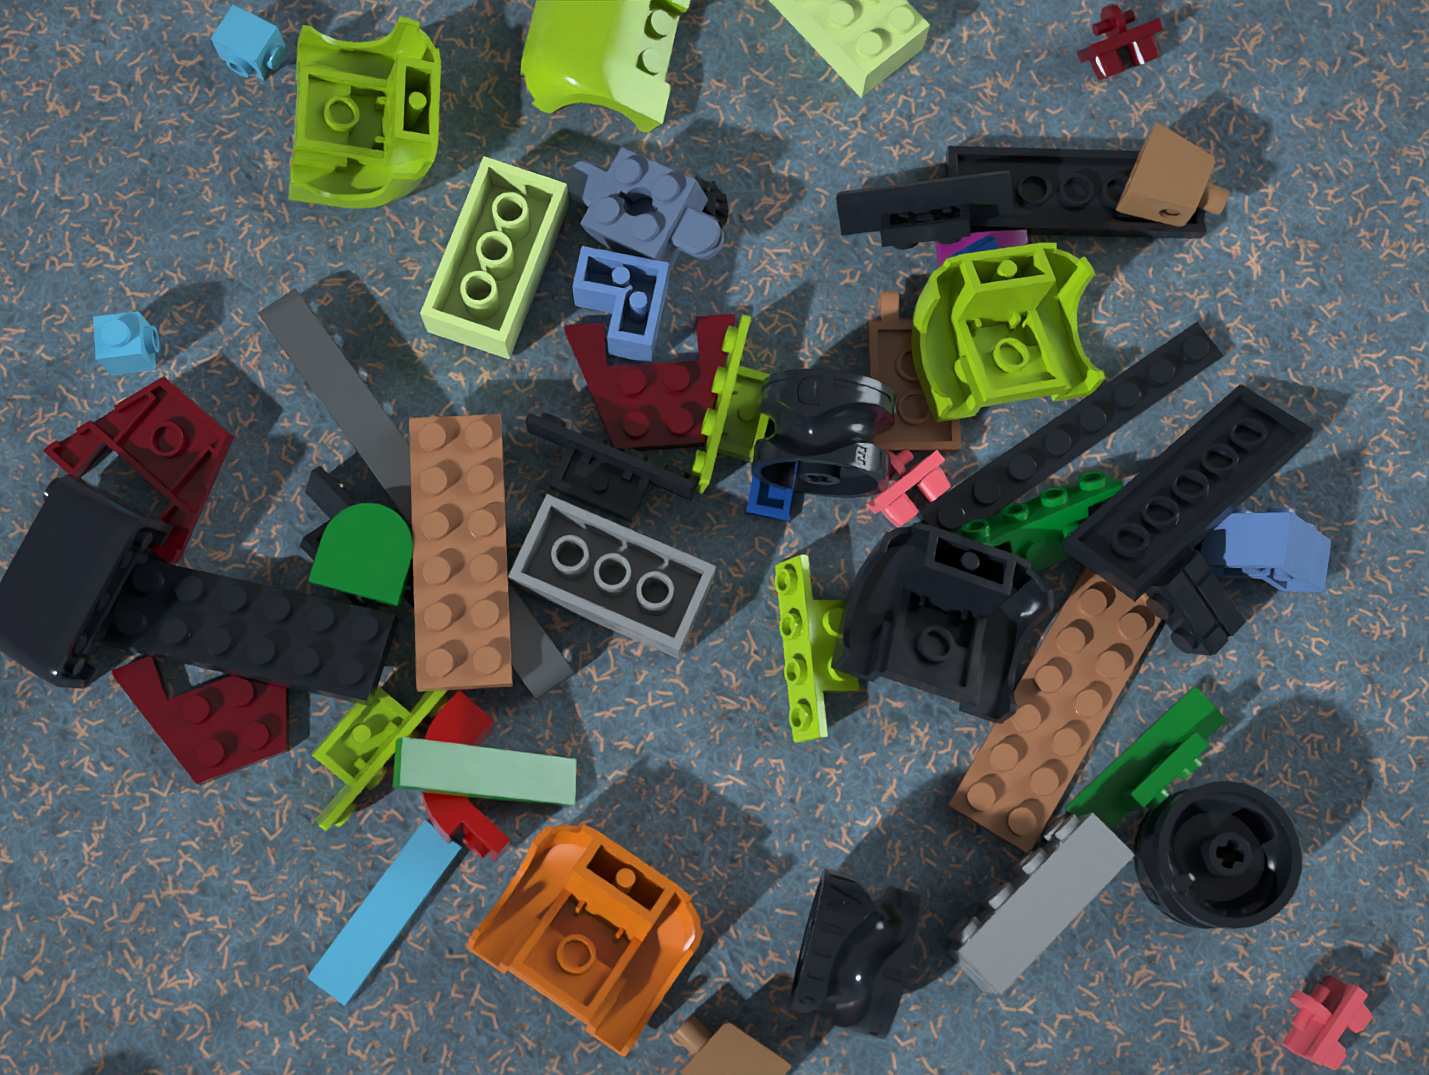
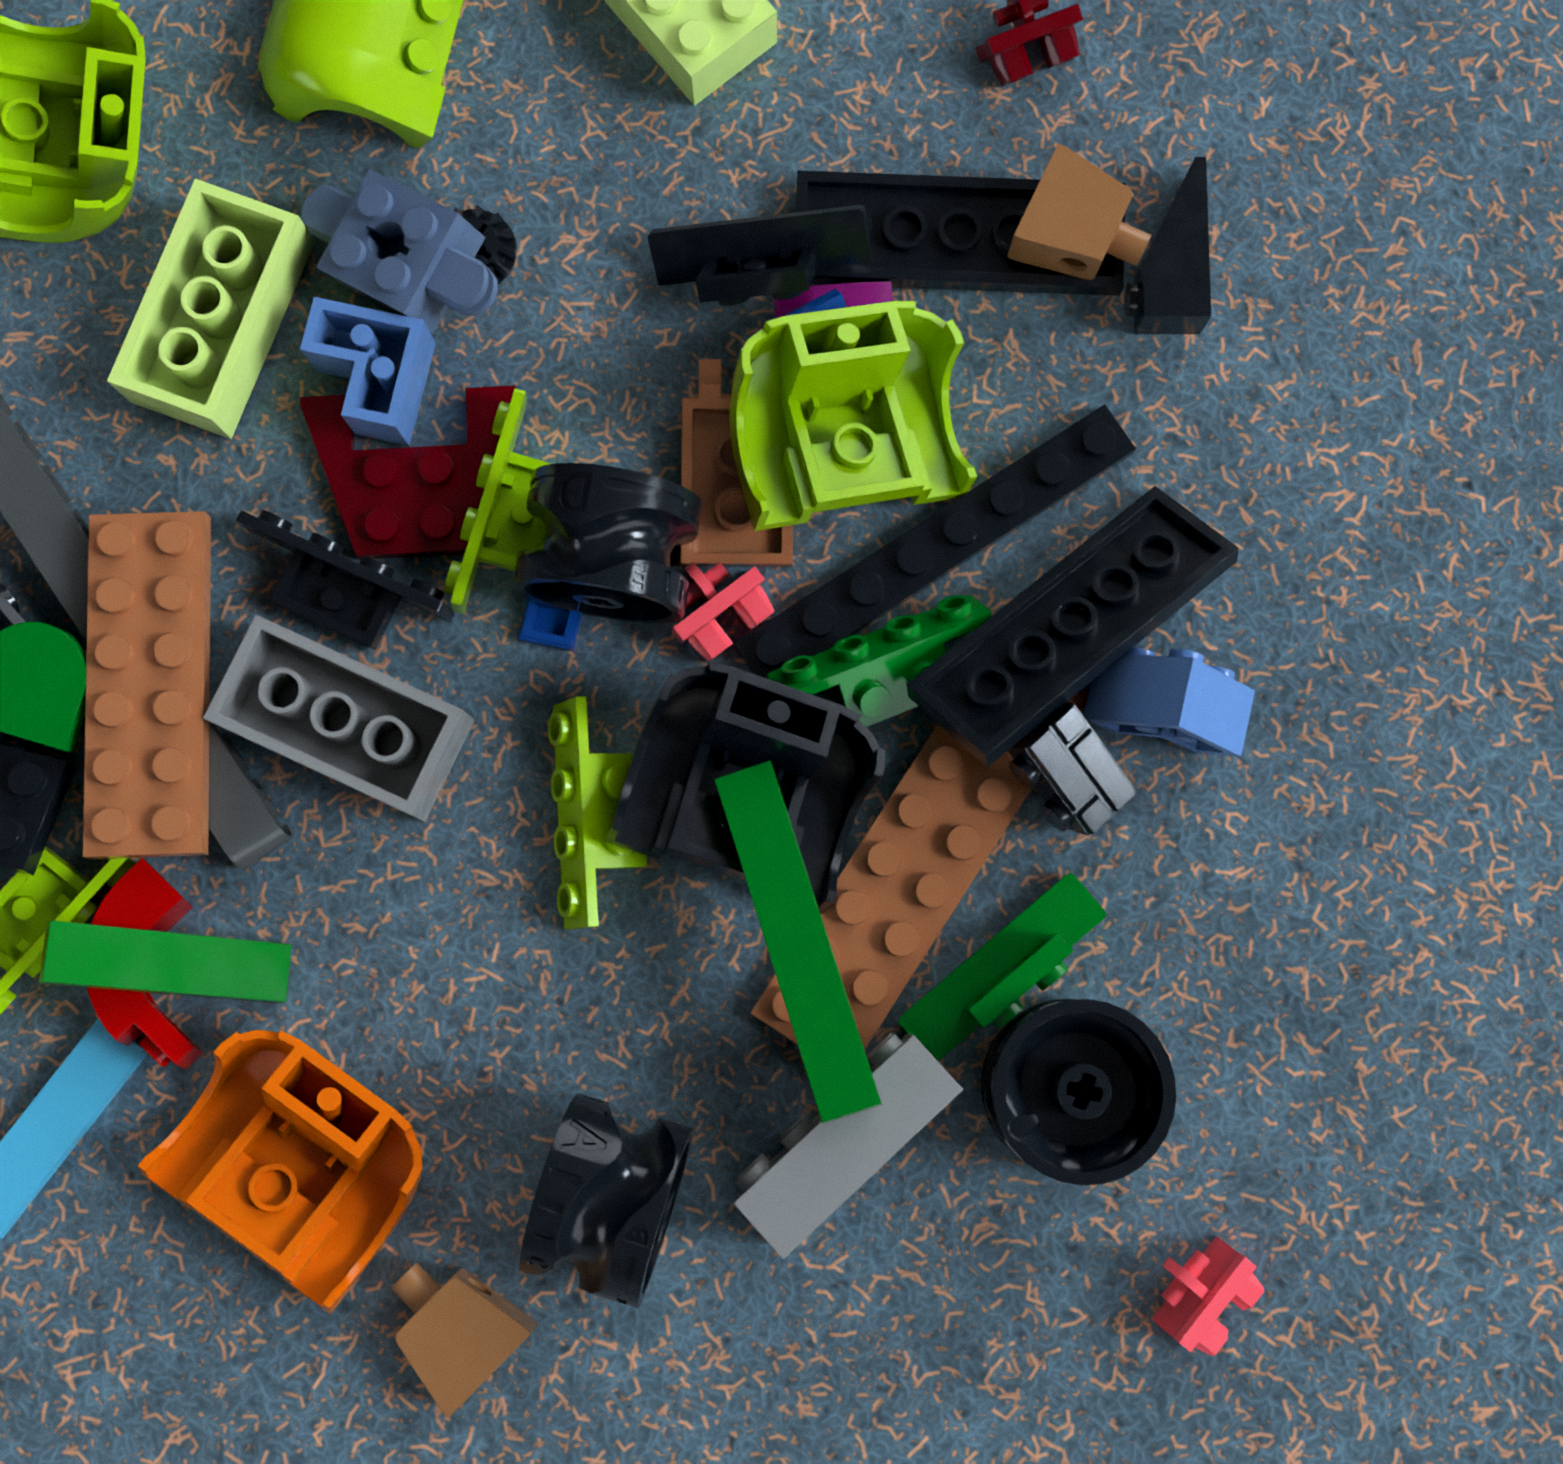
camera: 10 degrees right, 5 degrees up
(996, 743) = (798, 943): none -> green tile
(1246, 227) = (1174, 279): none -> black slope

